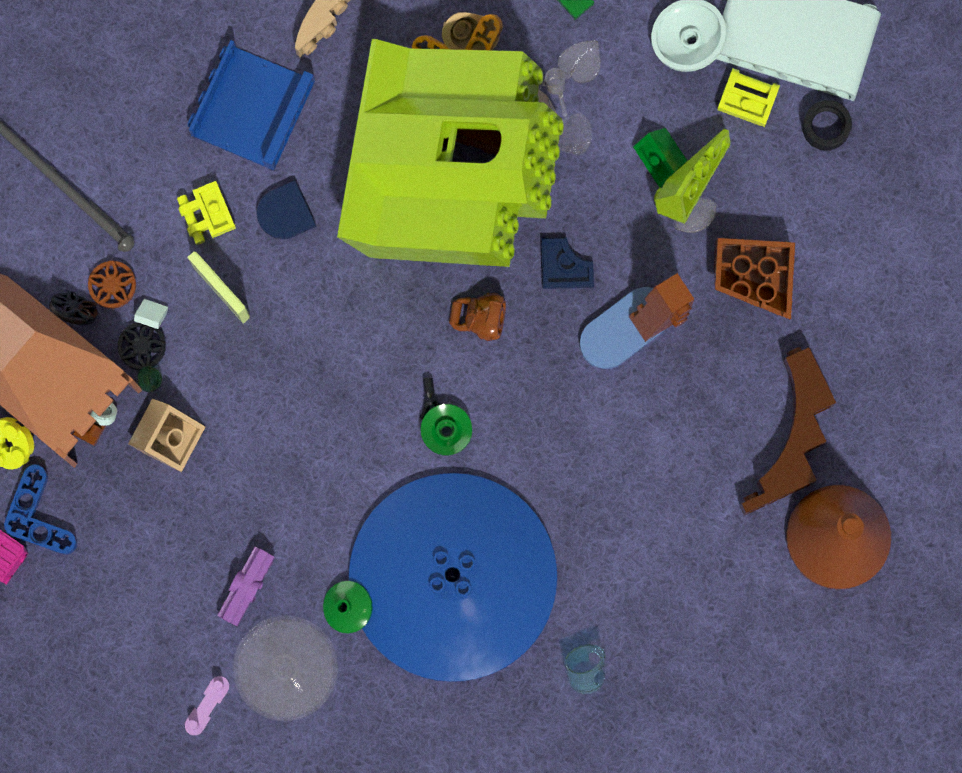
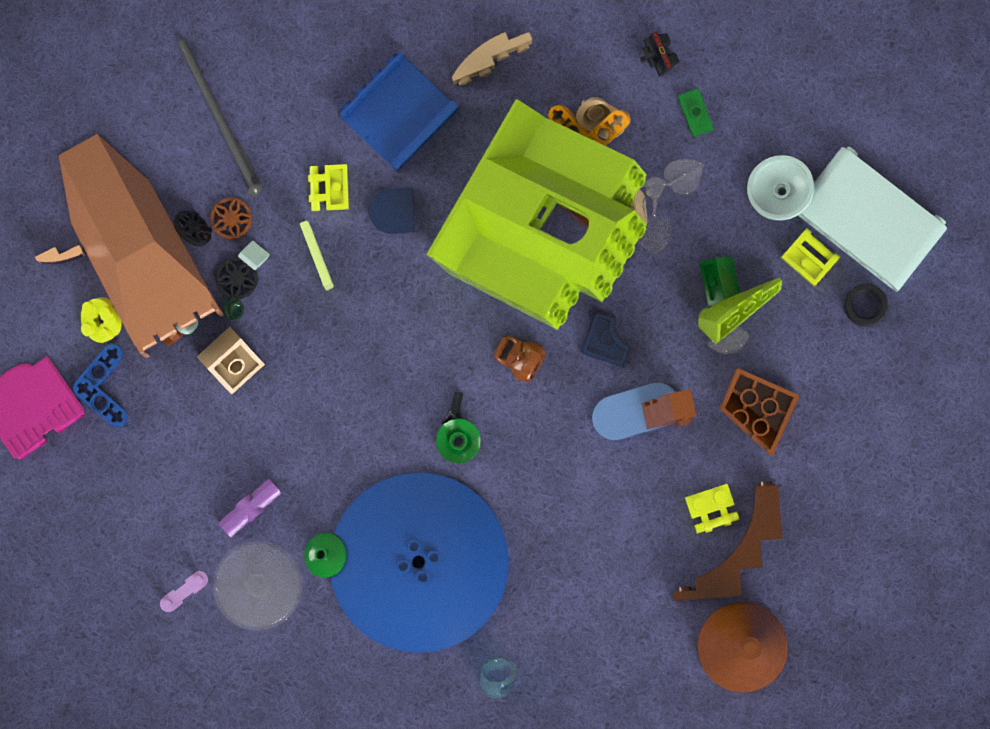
camera: 15 degrees right, 5 degrees up
(742, 394) = (710, 501): none -> neon yellow plate

